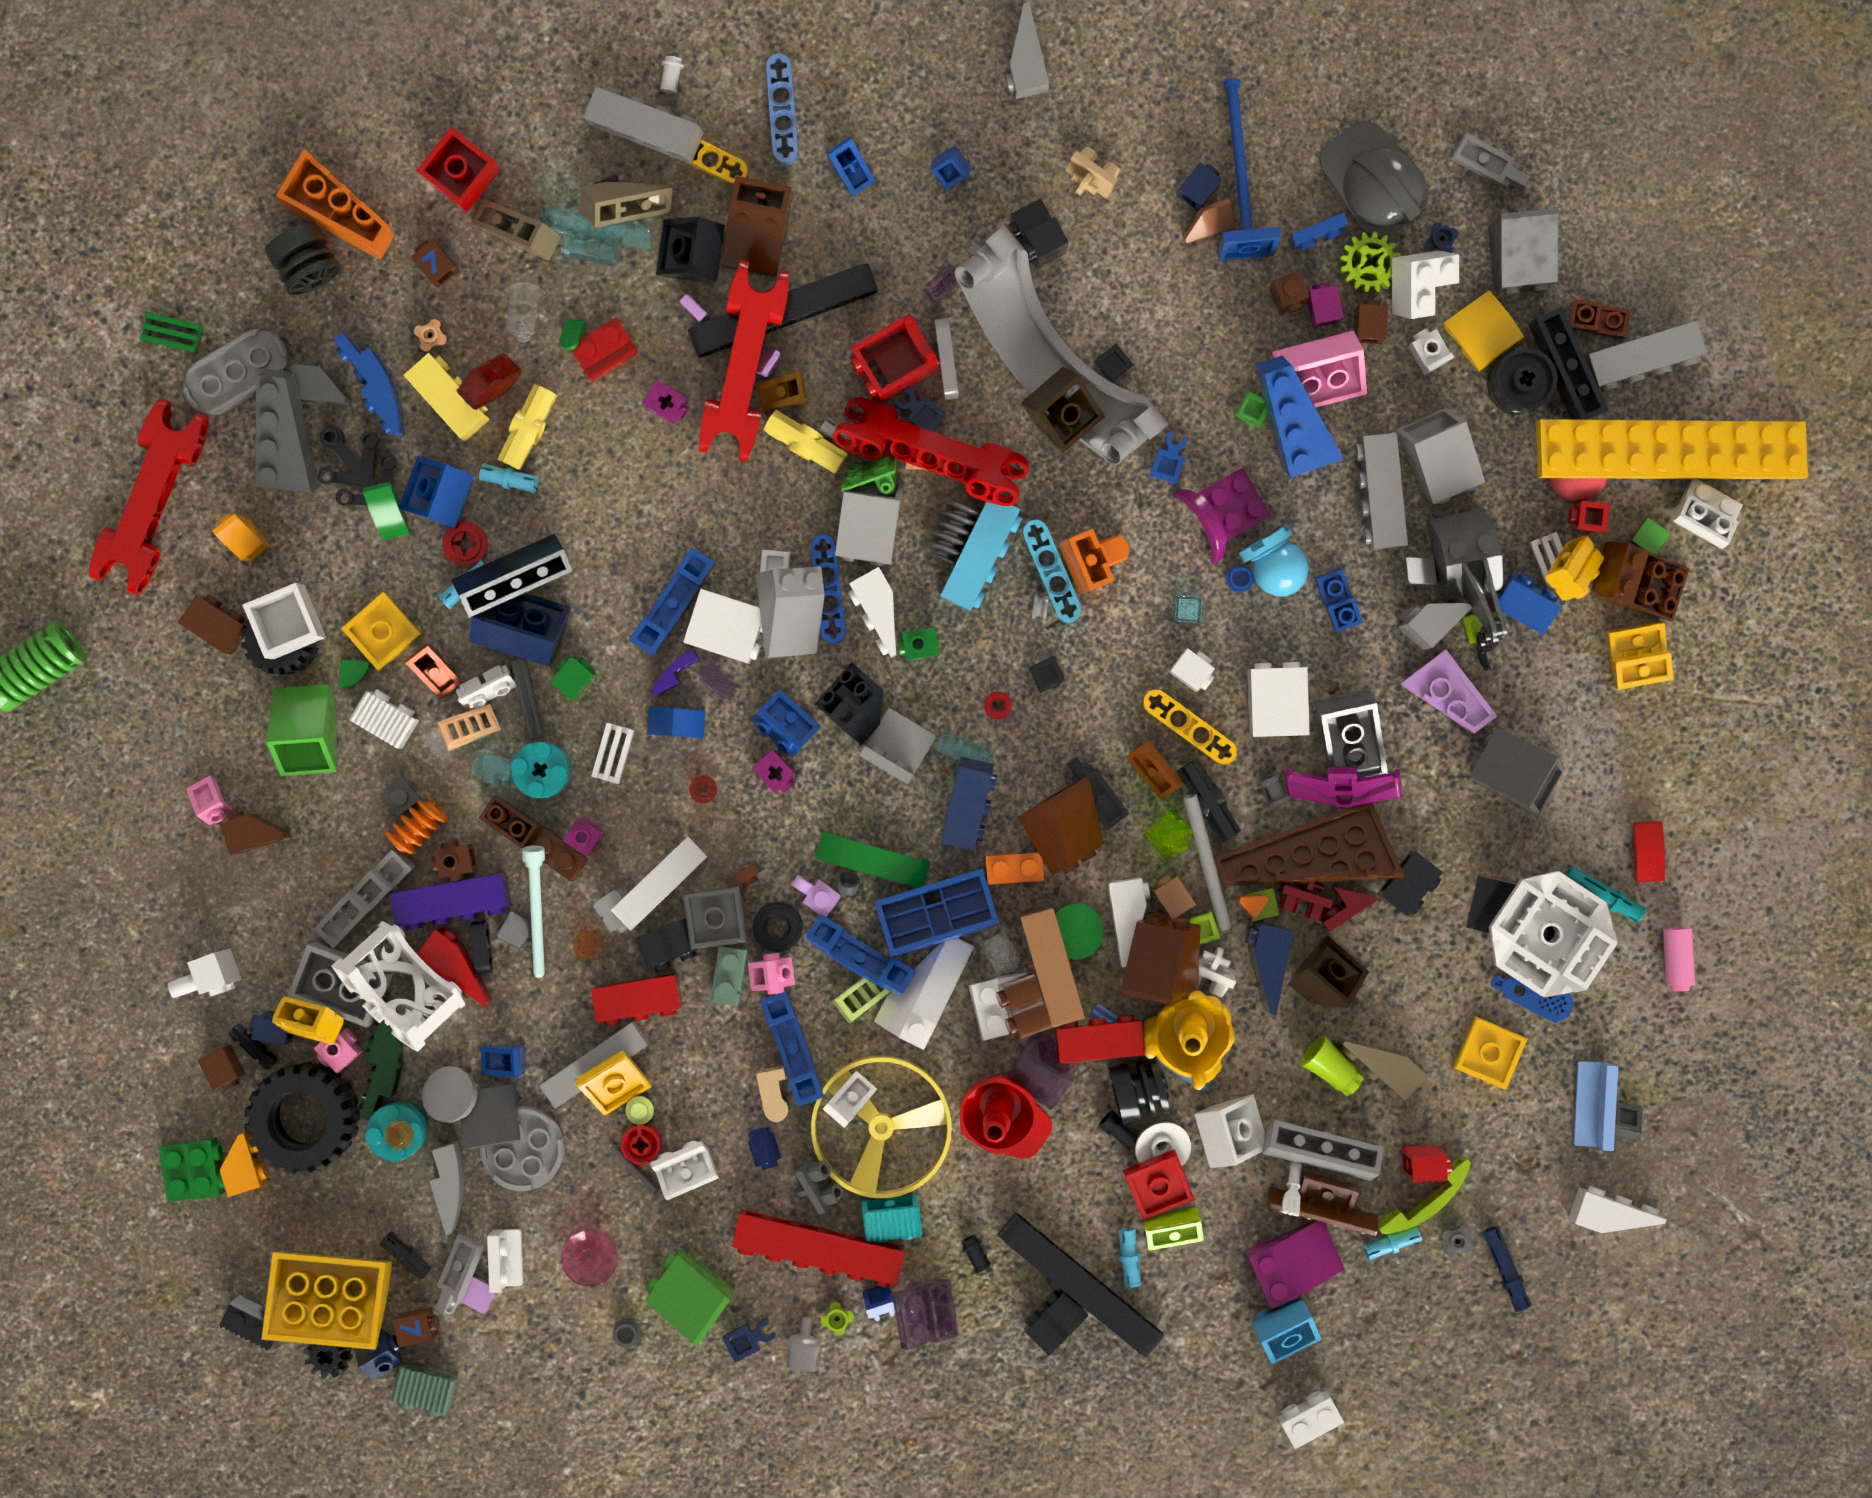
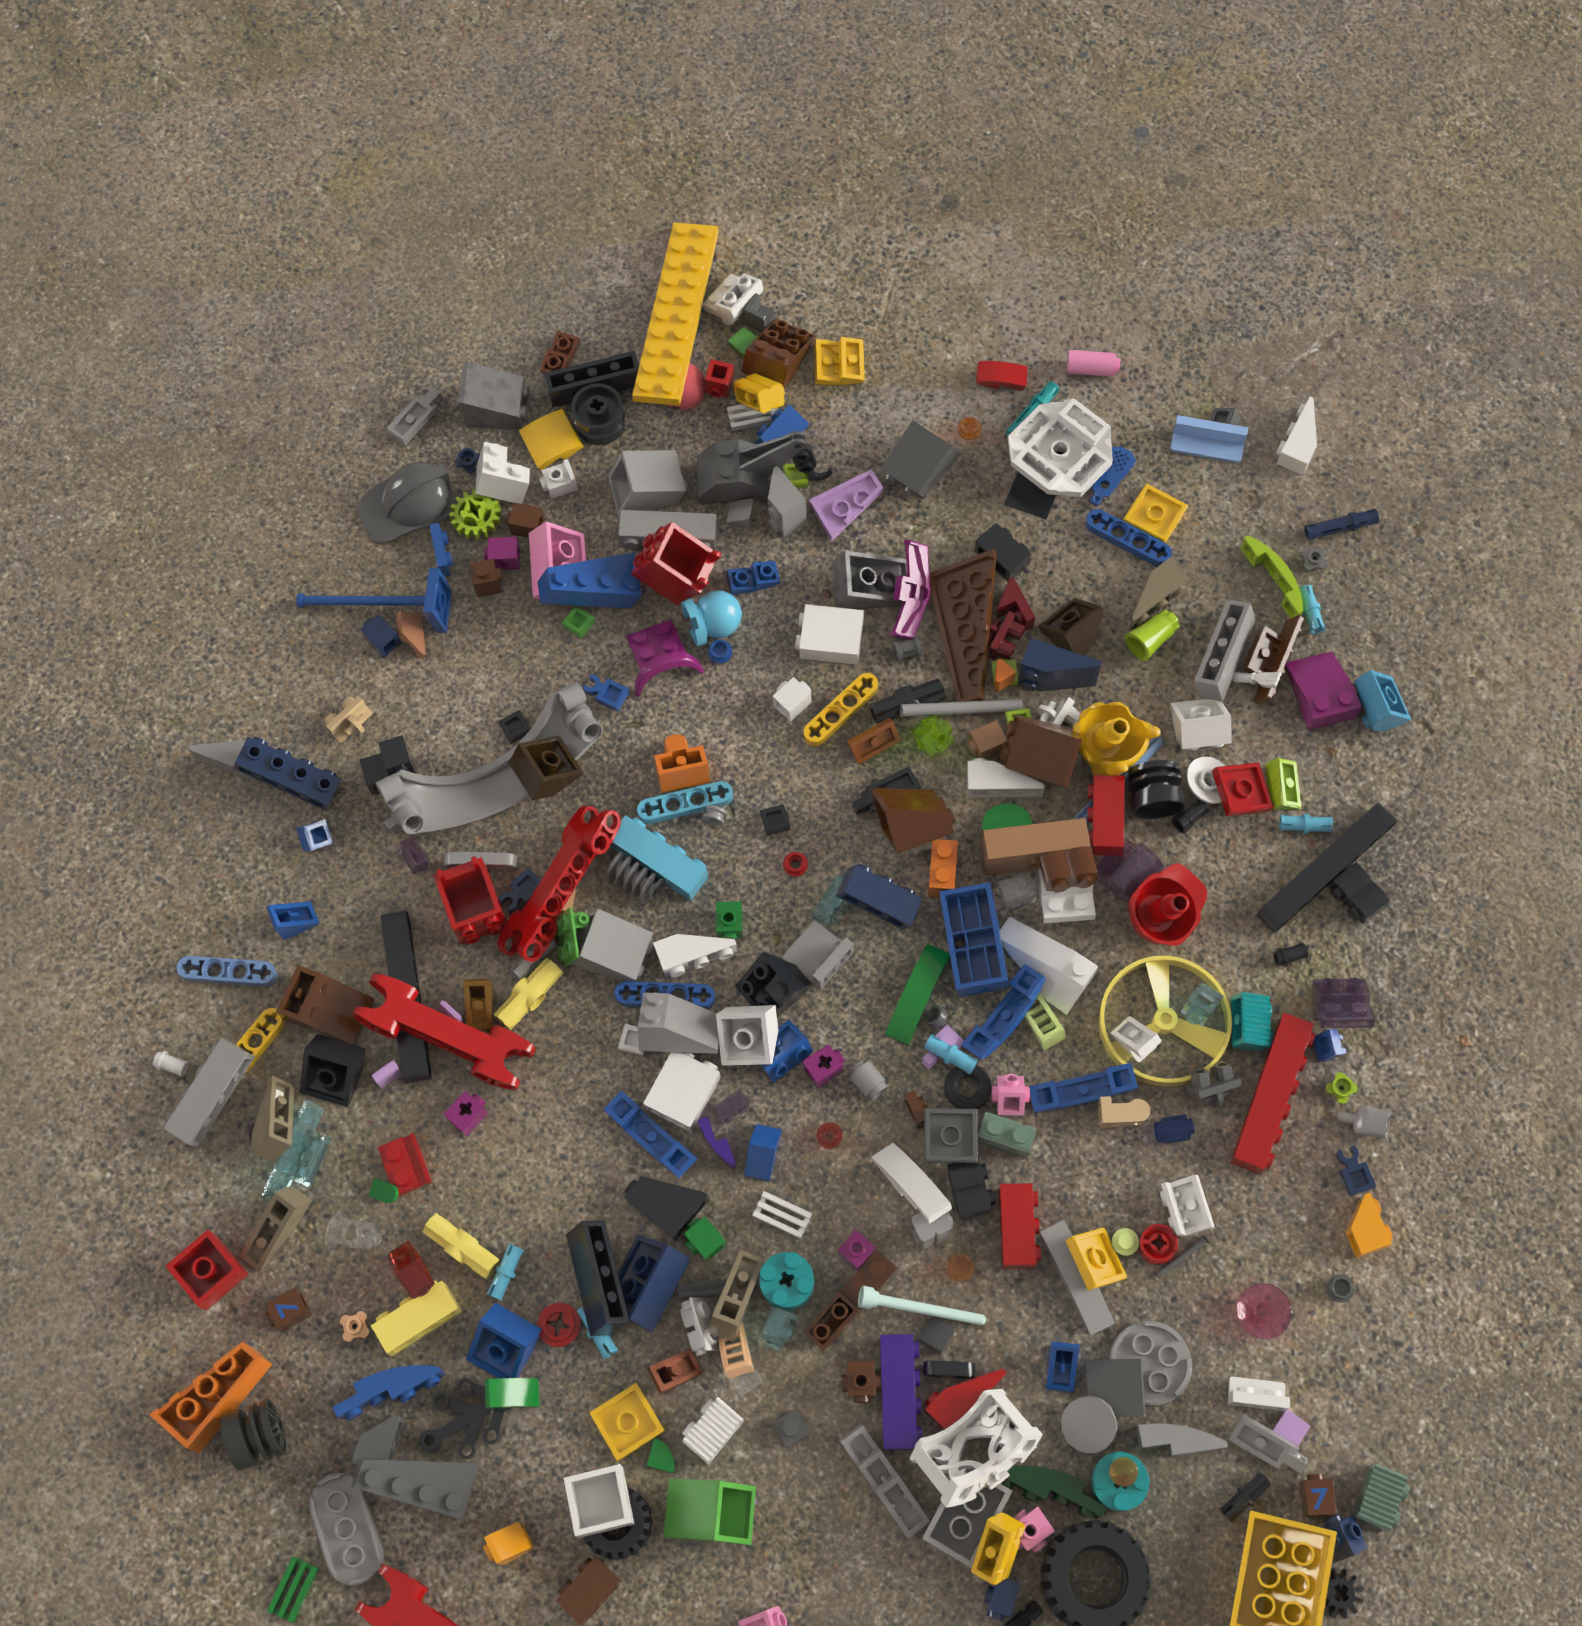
camera: 80 degrees left, 20 degrees down
(250, 832) = (802, 1588): reddish brown slope -> none
(417, 826) = (821, 1414): orange piece -> none
(517, 721) = (736, 1296): none -> dark tan slope
(602, 630) = (665, 1204): none -> black slope
(685, 1359) = (1366, 1229): none -> light orange slope
(688, 1295) = (1309, 1218): bright green slope -> none
(767, 821) = (868, 1080): none -> light grey brick
(793, 686) = (747, 1034): none -> white slope
(805, 905) = (950, 1054): none -> medium azure pin
(900, 1164) = (1199, 1011): none -> clear light blue brick
(1010, 121) = (286, 772): none -> dark blue brick
(1188, 609) = (738, 696): clear light blue tile -> none
(1310, 1418) = (1462, 696): white bracket -> none
(1330, 509) = (674, 563): none -> red container
(1426, 1163) = (1244, 570): red brick -> none
(1459, 1027) = (1126, 540): none -> blue beam
(1570, 822) = (969, 428): none -> clear orange plate
(1645, 355) = (596, 320): light grey brick -> none
(1688, 549) = (757, 315): none -> dark grey panel

